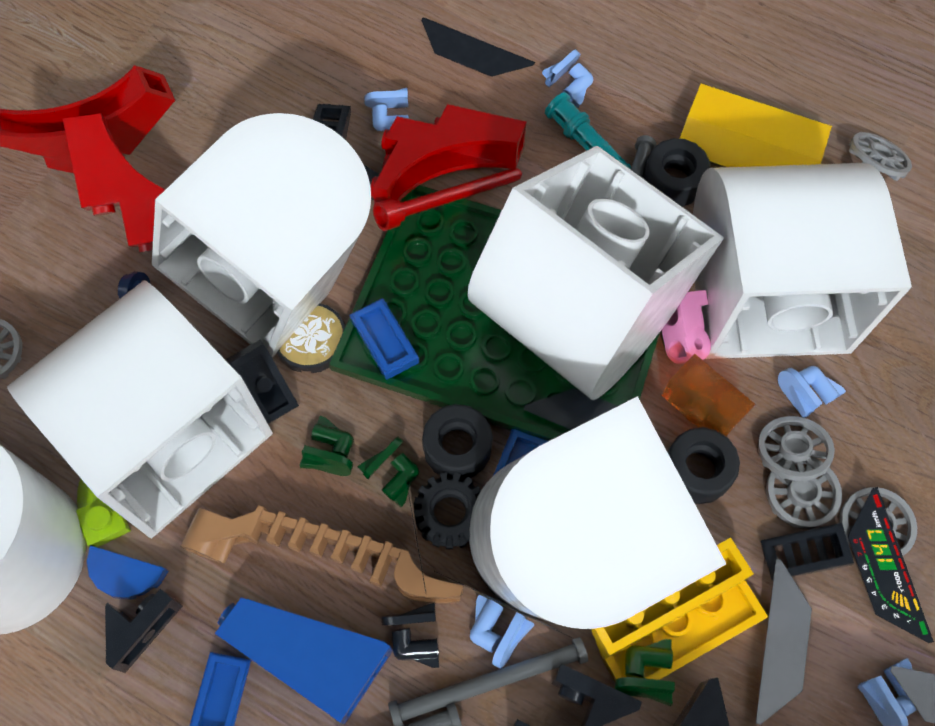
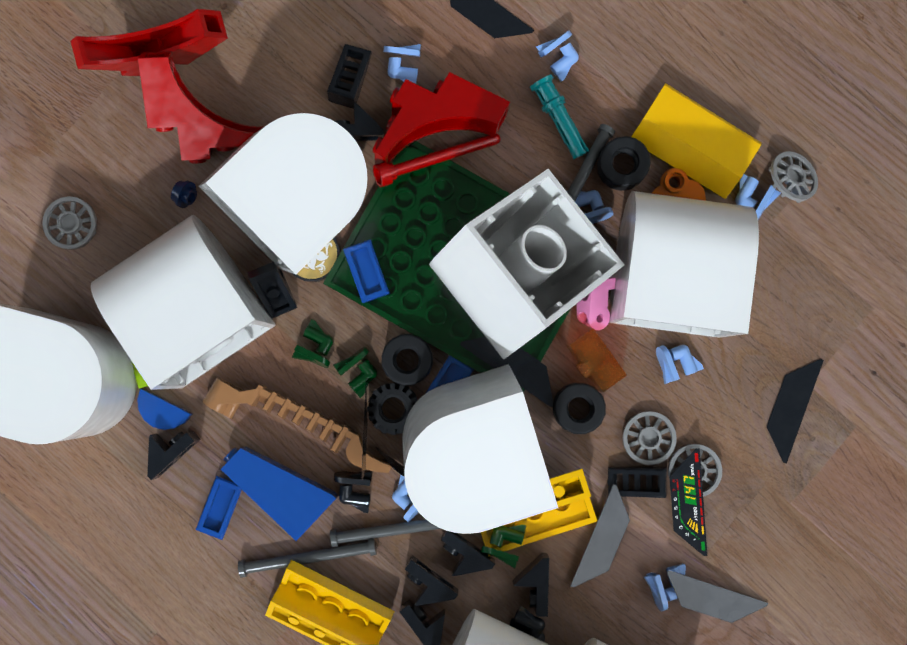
camera: 15 degrees right, 20 degrees up
(795, 448) = (651, 407): light grey wheel -> none

